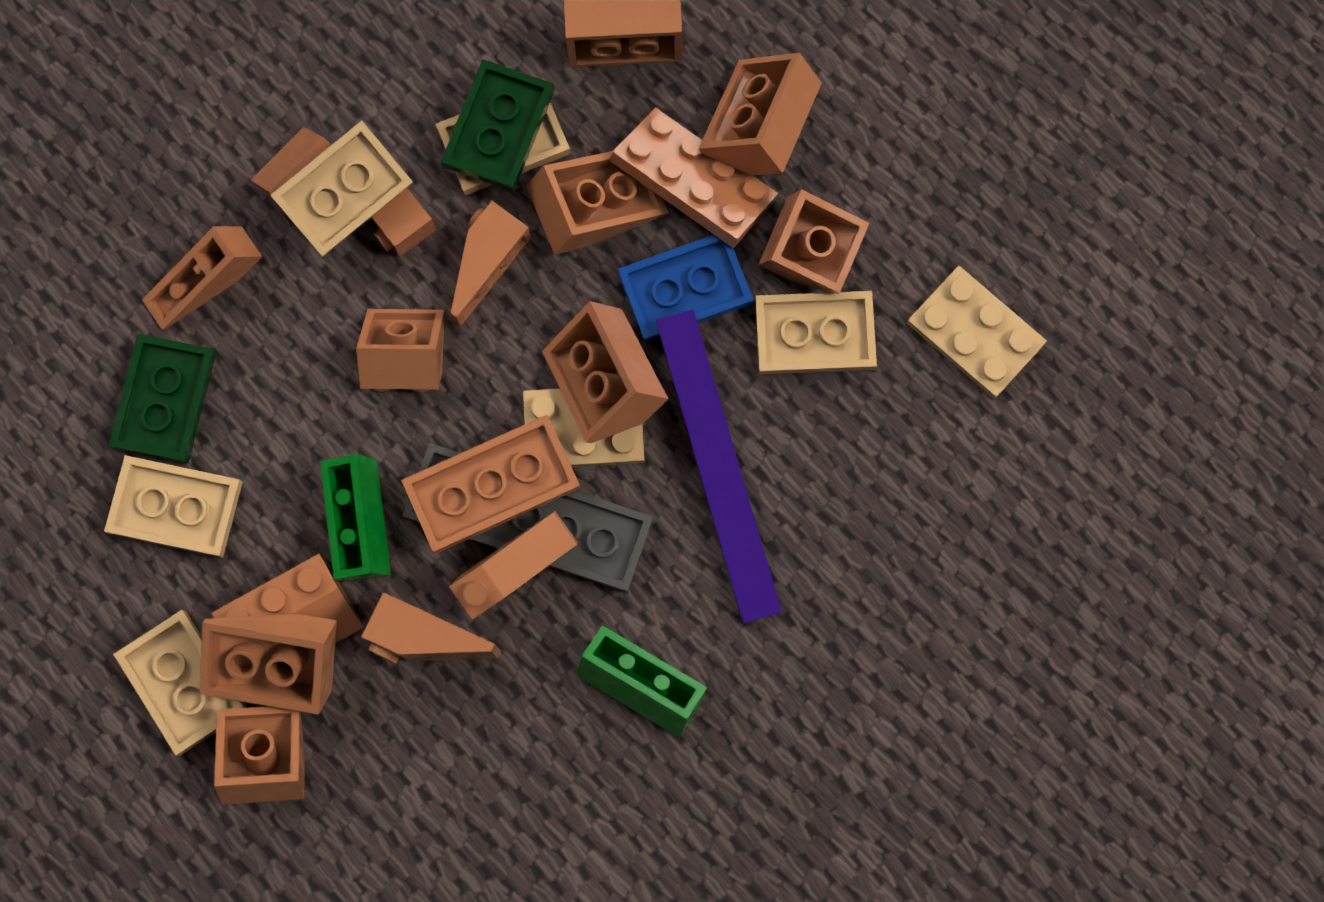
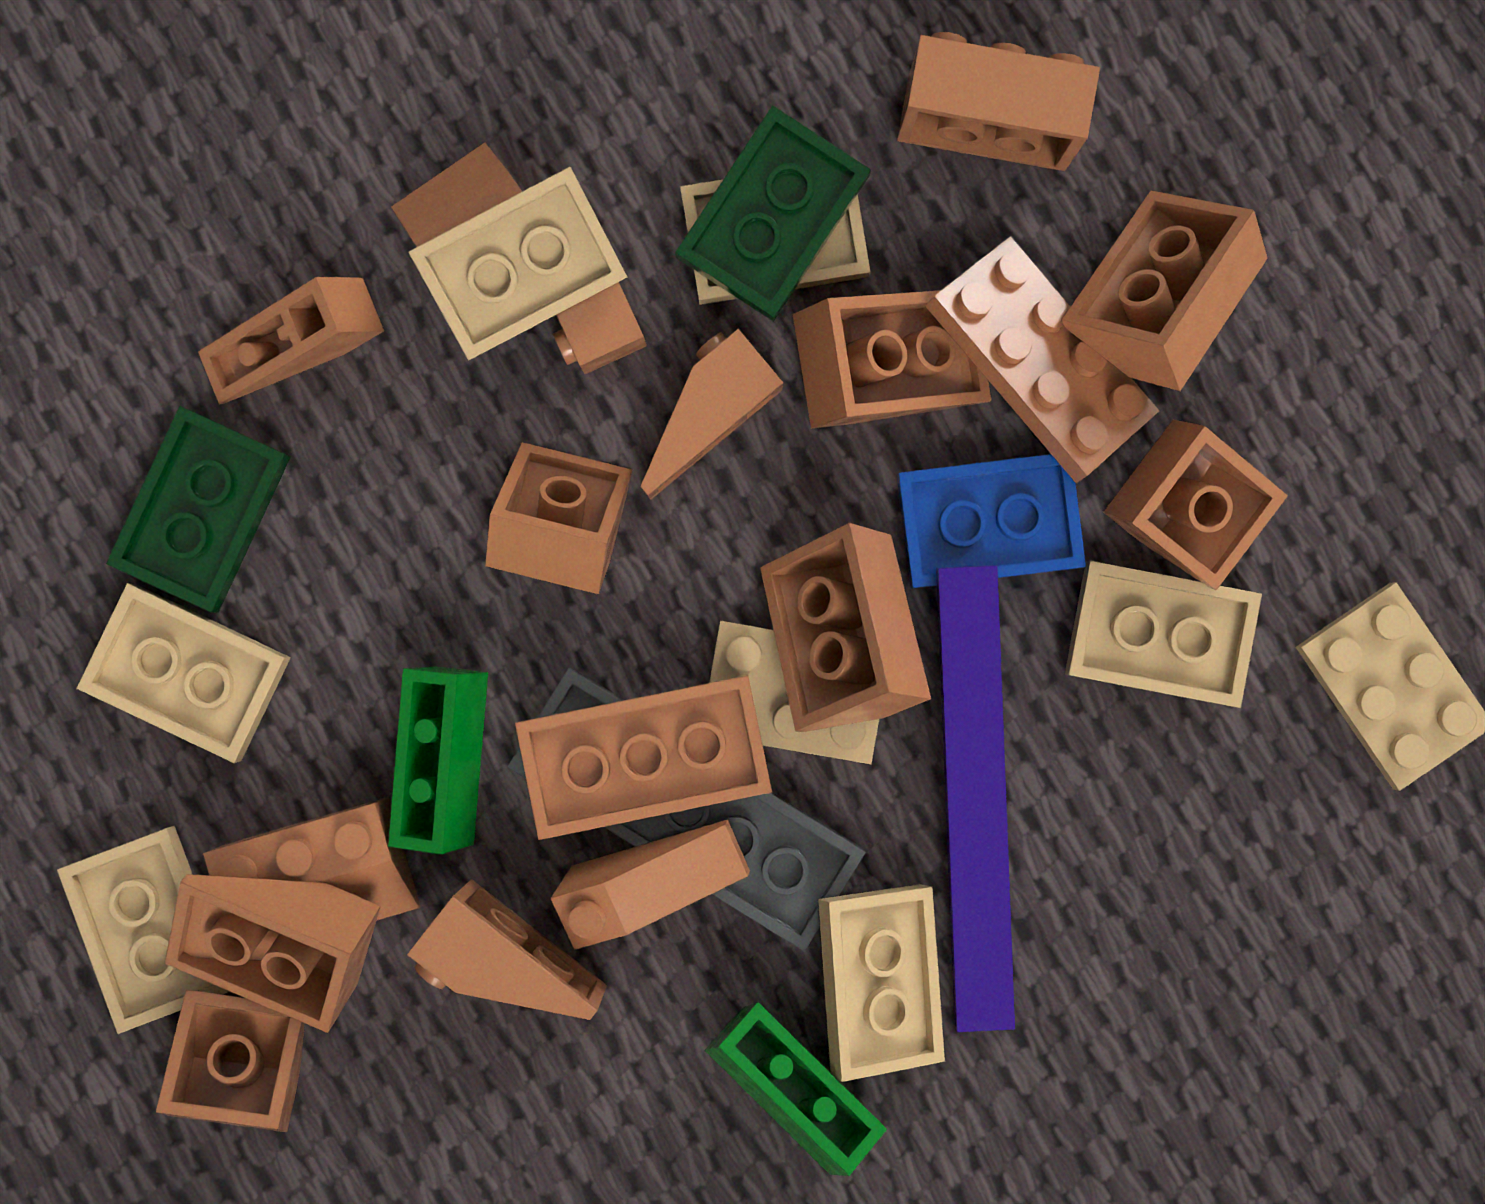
camera: 10 degrees right, 10 degrees up
(683, 597) = (881, 981): none -> tan plate

